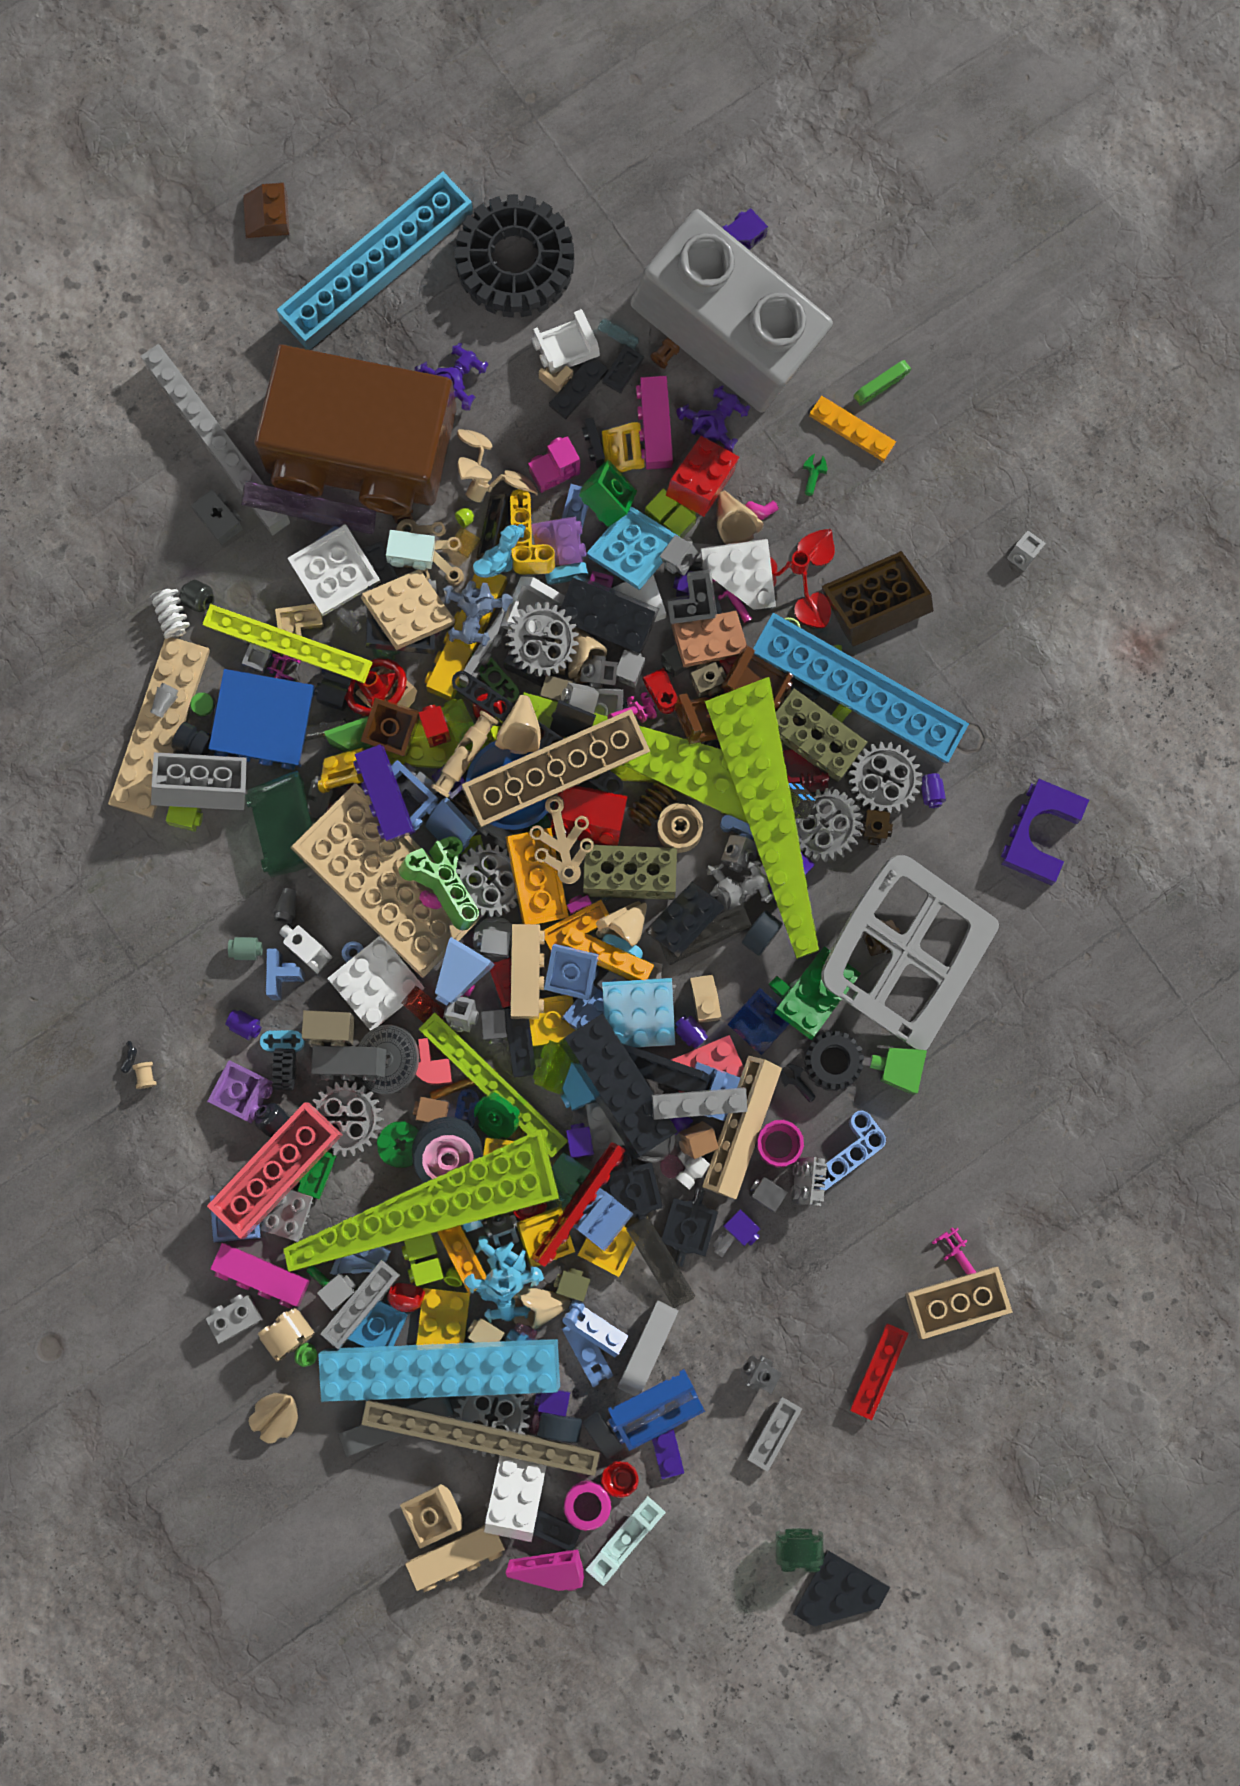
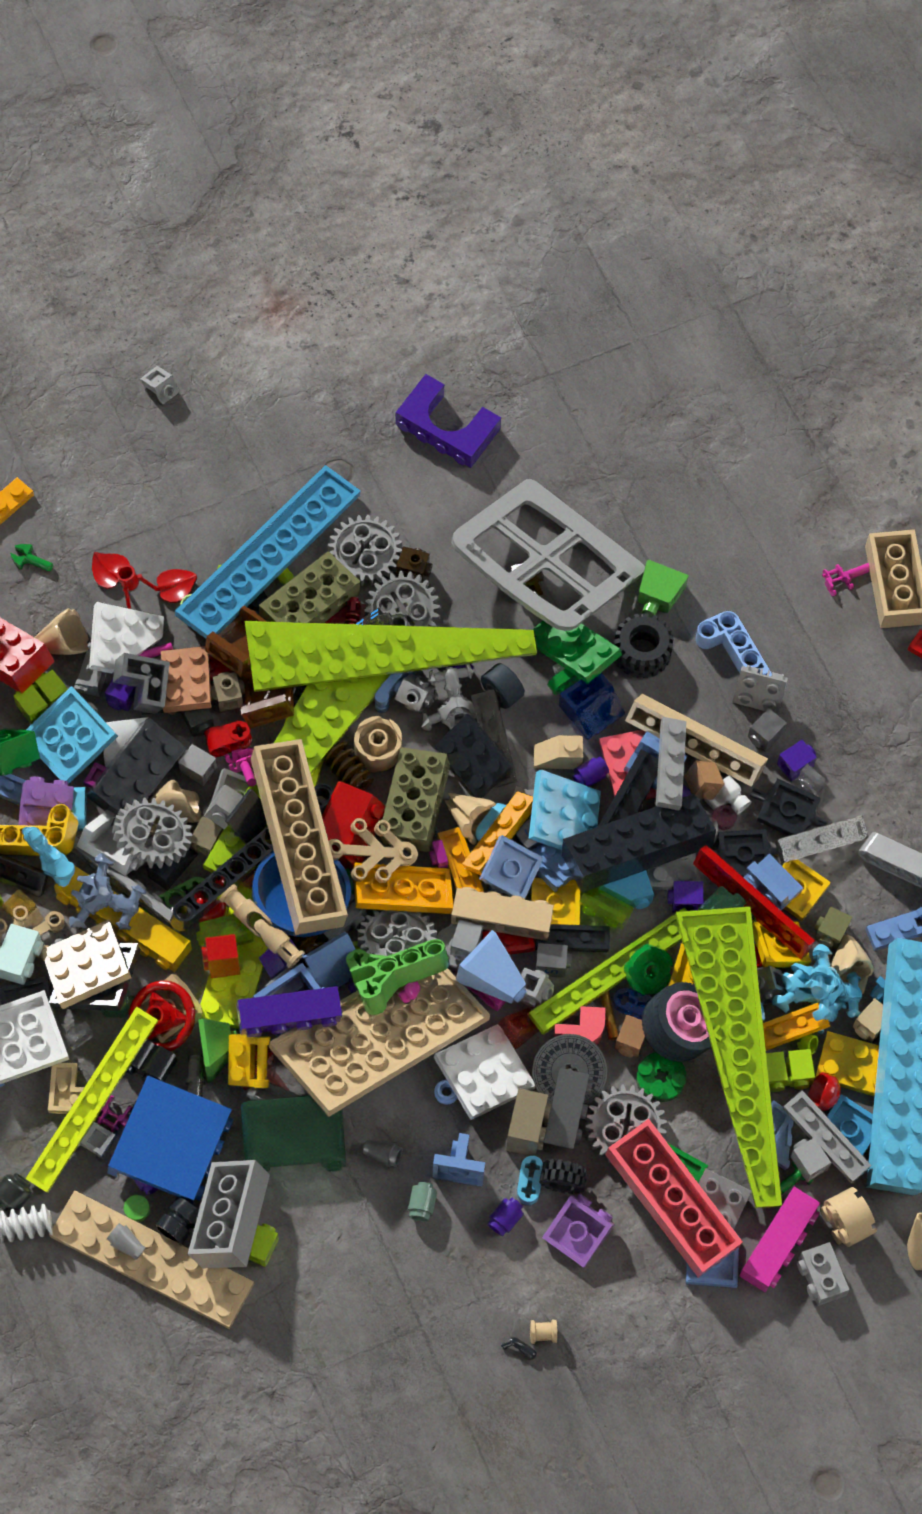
camera: 80 degrees left, 15 degrees down
(270, 1118) = (616, 1199): black head -> none
(305, 947) = (437, 1126): white torso -> none
(305, 1355) = (874, 1204): bright green plate -> none
(391, 726) = (214, 997): reddish brown slope -> none
(520, 729) = (249, 859): tan hat -> none
(526, 1330) = (872, 981): clear pink tile -> none
(594, 1328) = (880, 913): plate -> none
(599, 672) = (198, 789): flat silver brick -> none
(679, 555) = (92, 689): light grey brick -> none
(762, 511) = (57, 606): dark pink arm -> none
(795, 1135) = (719, 694): dark pink piece -> none
(797, 1082) = (657, 686): black bar -> none
(878, 598) = (177, 522): dark brown slope -> none
(933, 790) = (386, 510): dark purple brick -> none

